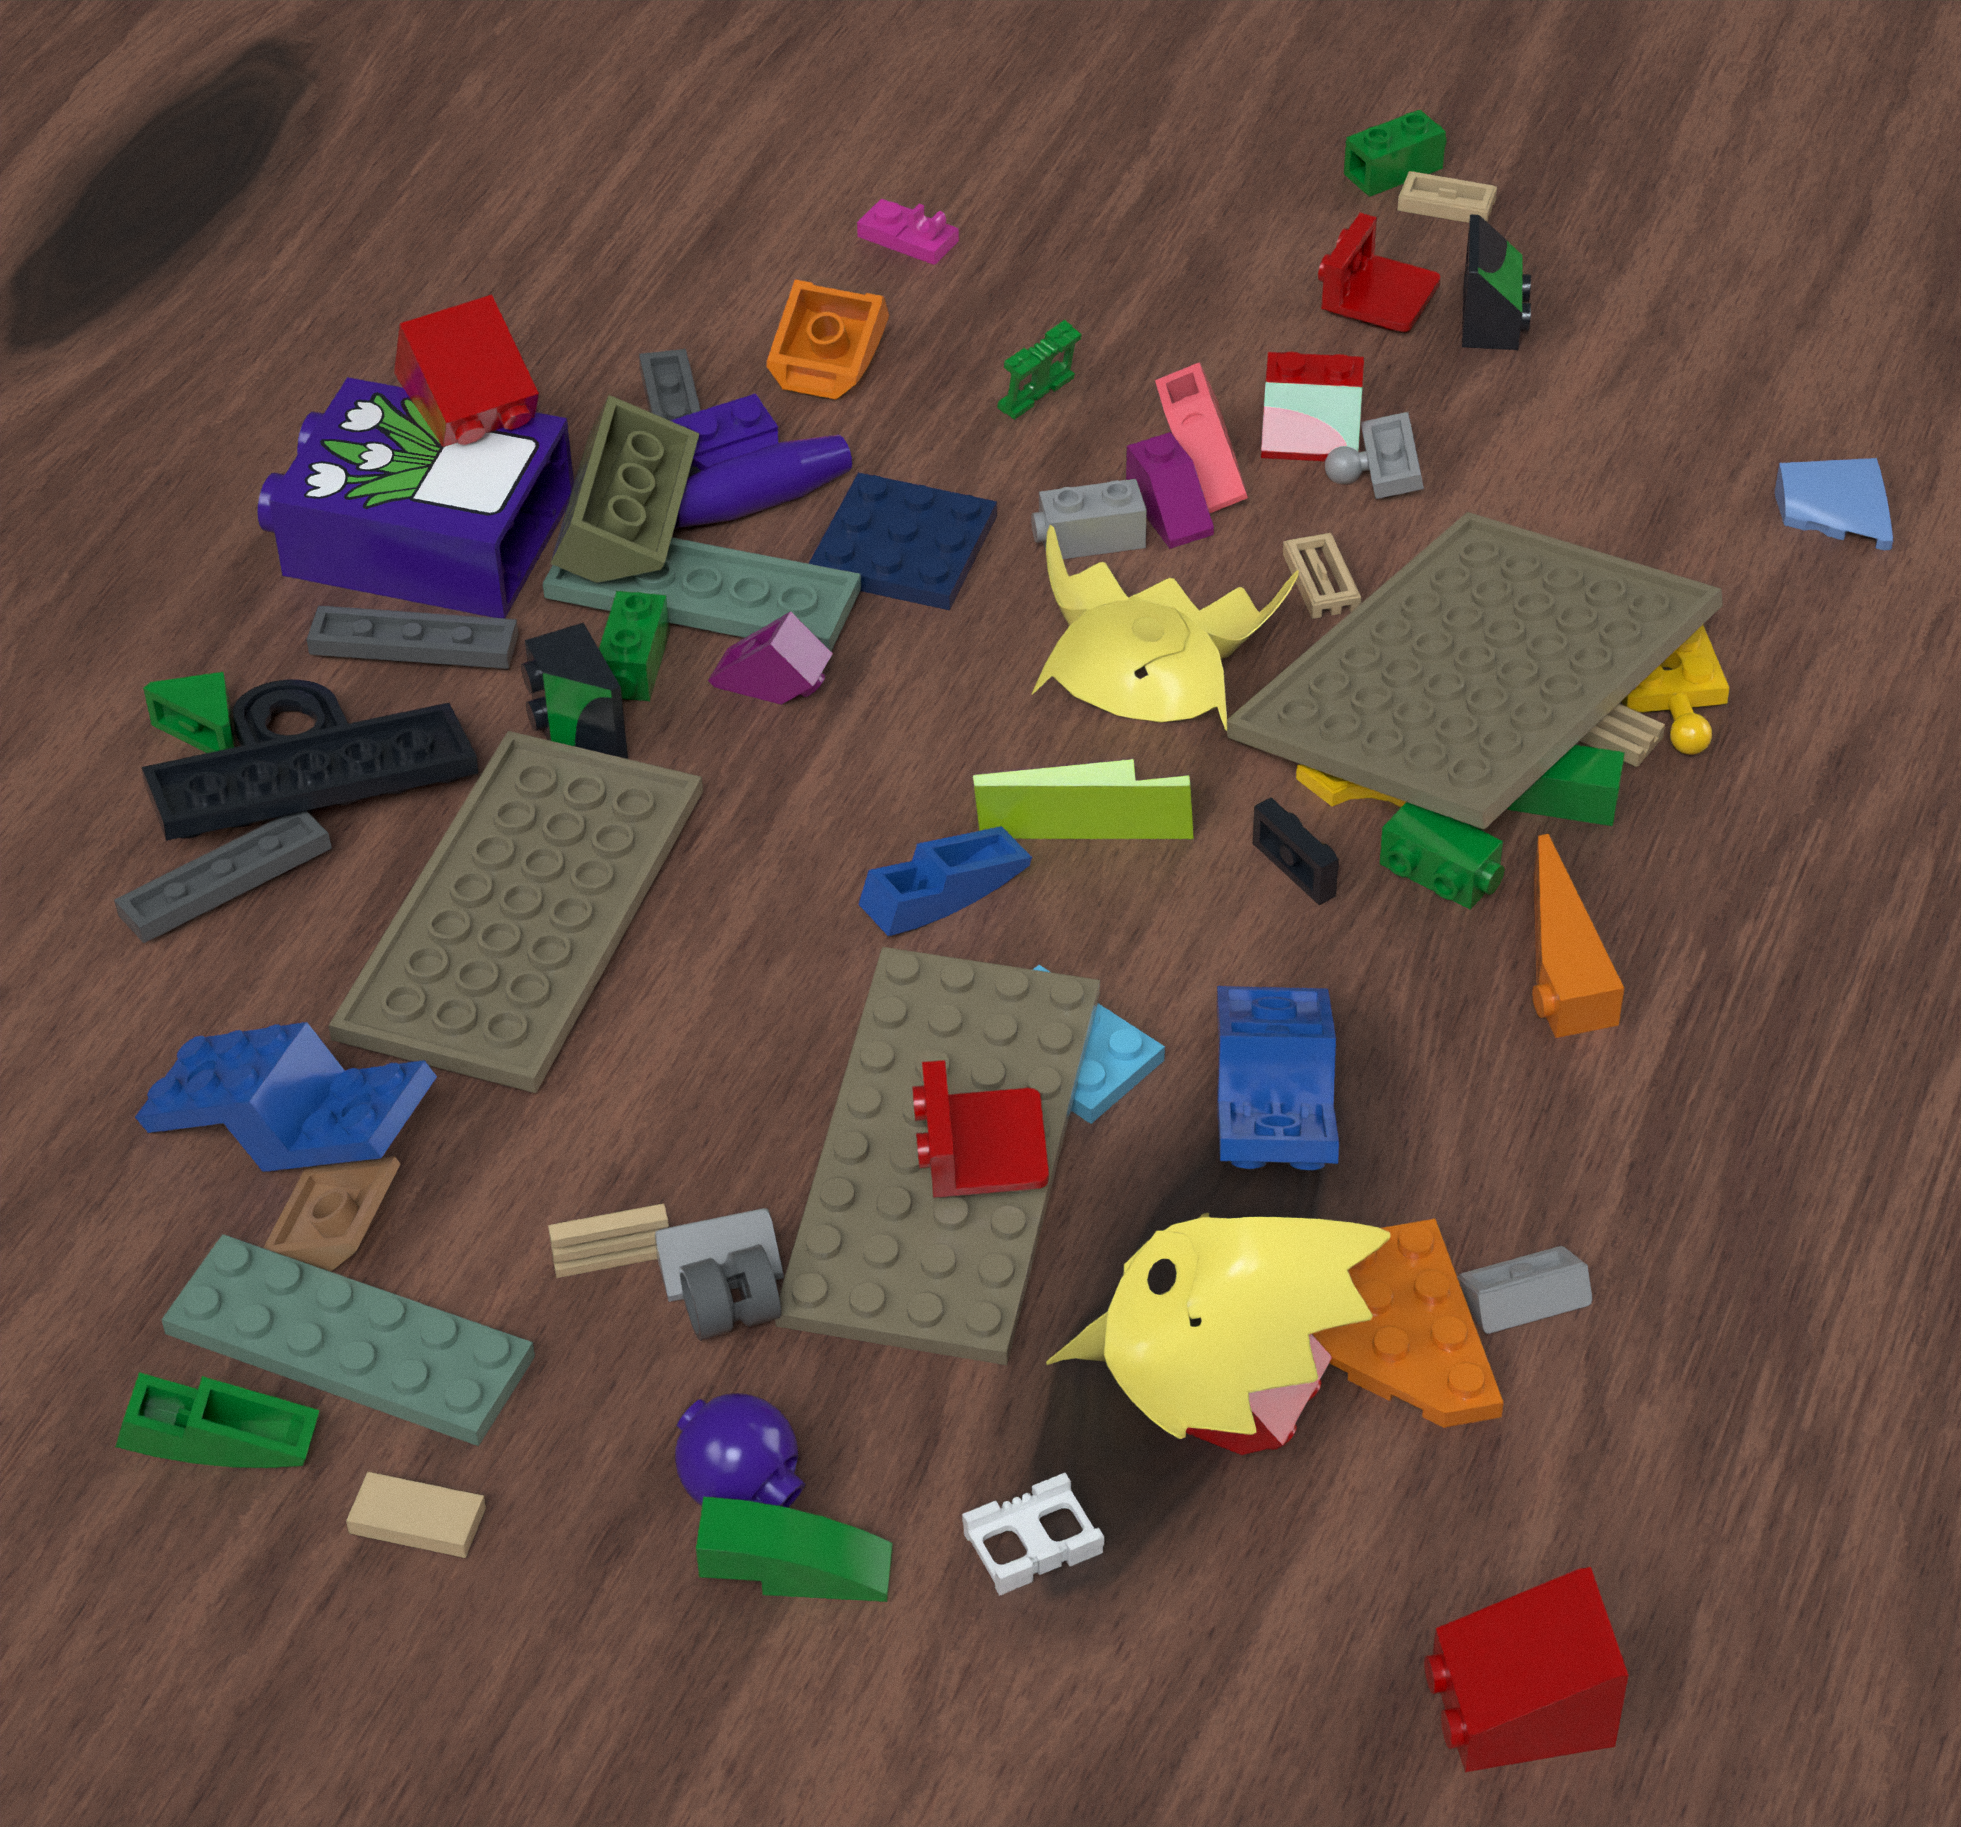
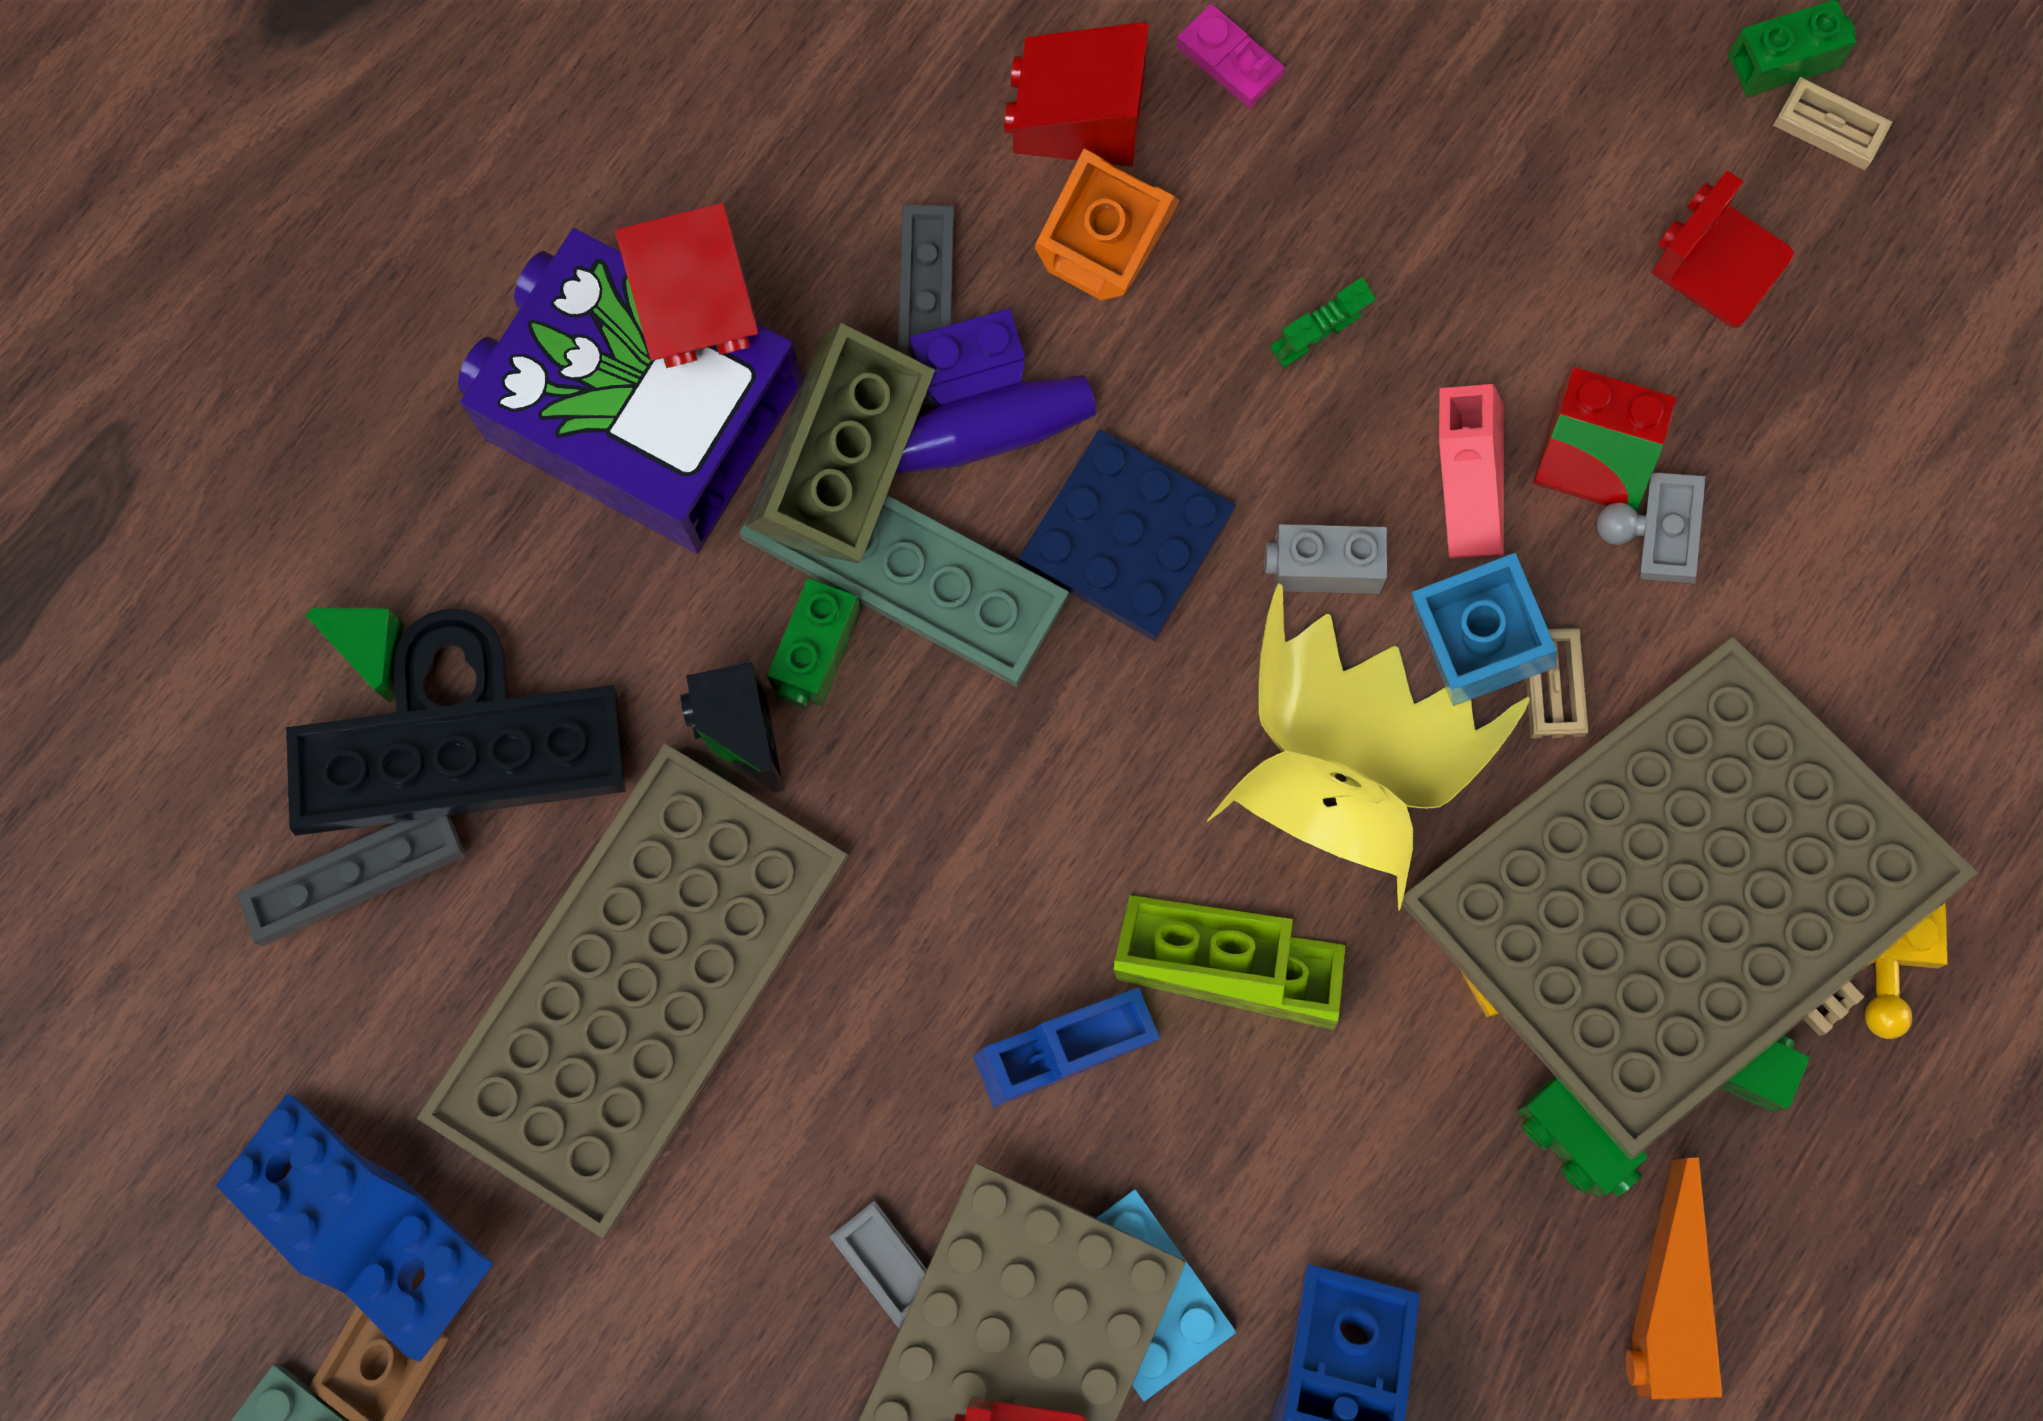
camera: 15 degrees right, 30 degrees up
(413, 637) = (596, 575): dark grey plate -> none
(774, 249) = (1079, 93): none -> red slope
(774, 662) = (951, 701): magenta slope -> none
(805, 1060) = (882, 1260): none -> light grey tile
(1169, 490) = (1419, 530): magenta slope -> none
(1243, 530) = (1484, 629): none -> dark azure brick
(1295, 850) = (1444, 1117): black plate -> none
(1493, 290) = (1845, 304): black slope -> none

